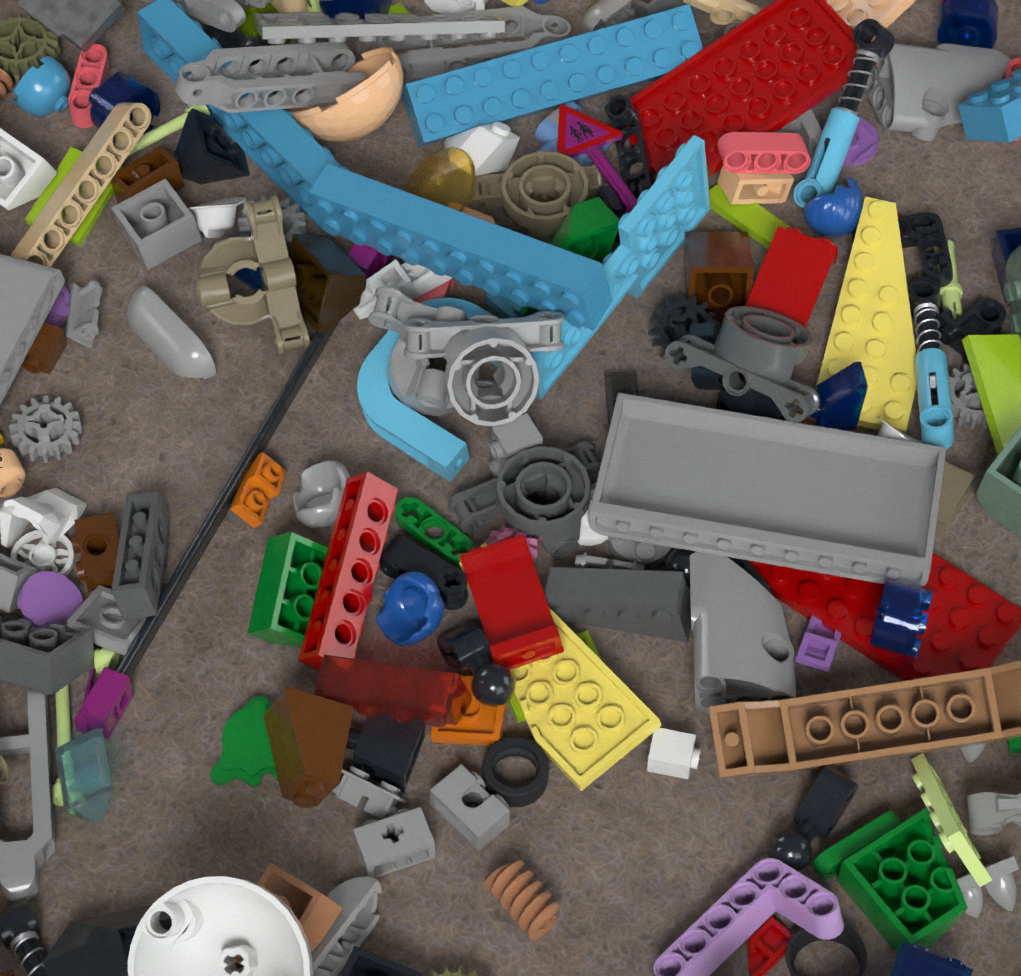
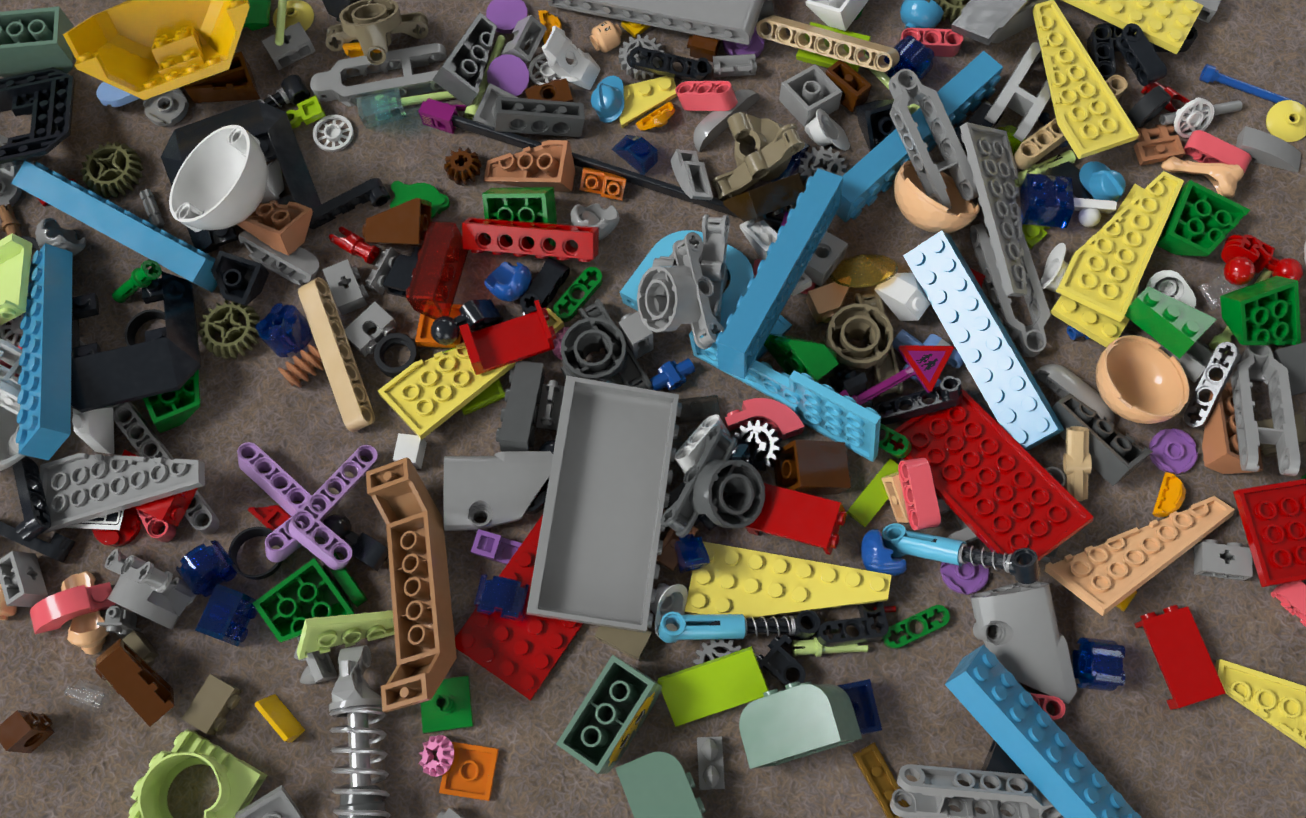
camera: 90 degrees right, 15 degrees up
(59, 903) = (308, 111): none -> lime plate
(86, 351) = (667, 68): none -> black beam
(104, 871) = (333, 133): none -> white wheel
(110, 475) = (608, 99): none -> dark azure piece
(114, 437) = (645, 96): none -> light yellow wing
(138, 326) = (706, 95): none -> coral beam
(155, 416) = (657, 118): none -> light orange plate
(190, 685) = (456, 171): none -> reddish brown gear
(211, 444) = (637, 153): none -> clear blue slope
(220, 570) = (535, 167): none -> nougat wedge
(227, 804) = (371, 190): none -> black beam
(269, 370) = (691, 174): none -> light grey slope
(319, 832) = (355, 245): none -> red piece
(449, 918) = (284, 330): none -> clear blue brick
(514, 842) = (336, 355): none -> tan beam
(571, 421) = (672, 375): none -> blue axle
(634, 317) = (768, 411): none -> coral arch
(671, 381) = (694, 446): none -> white beam
(760, 848) = (328, 502): none -> lavender beam
(921, 183) = (918, 617): none -> green beam

